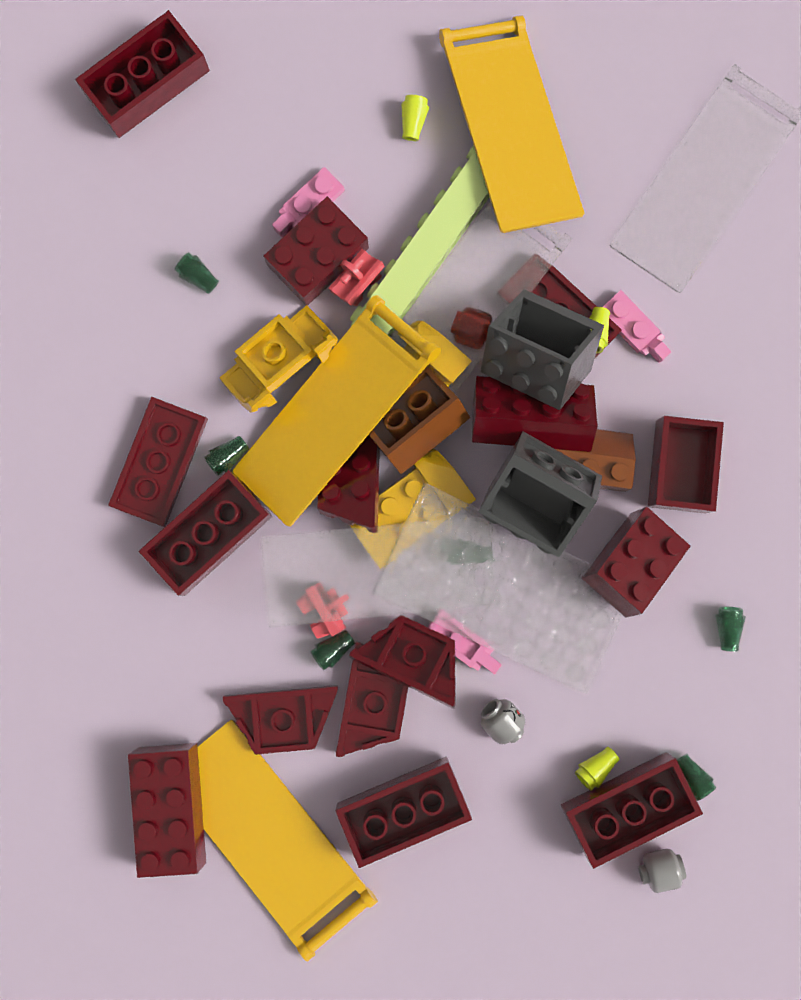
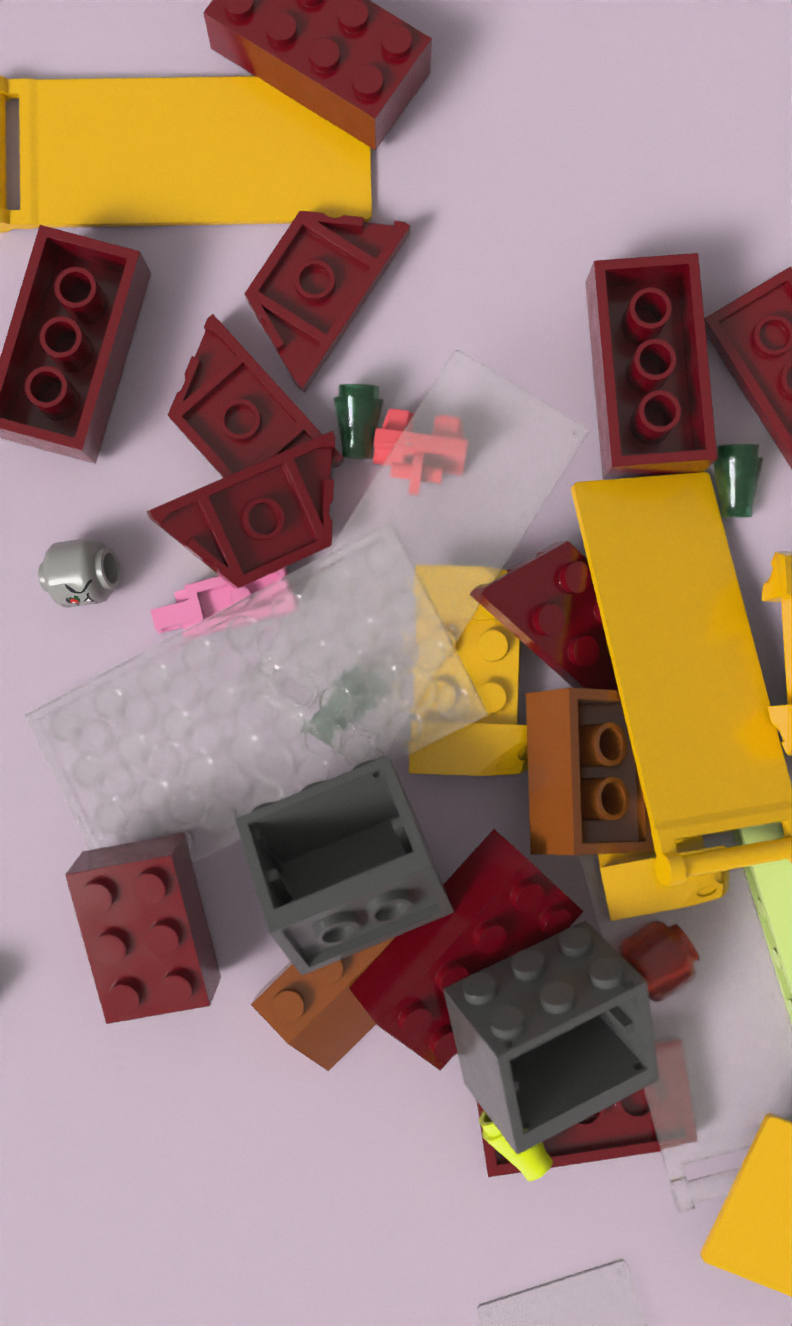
camera: 130 degrees right, 0 degrees up
(636, 327) = (475, 1201): bright pink hinge -> none
(685, 464) = (225, 1112): dark red piece -> none

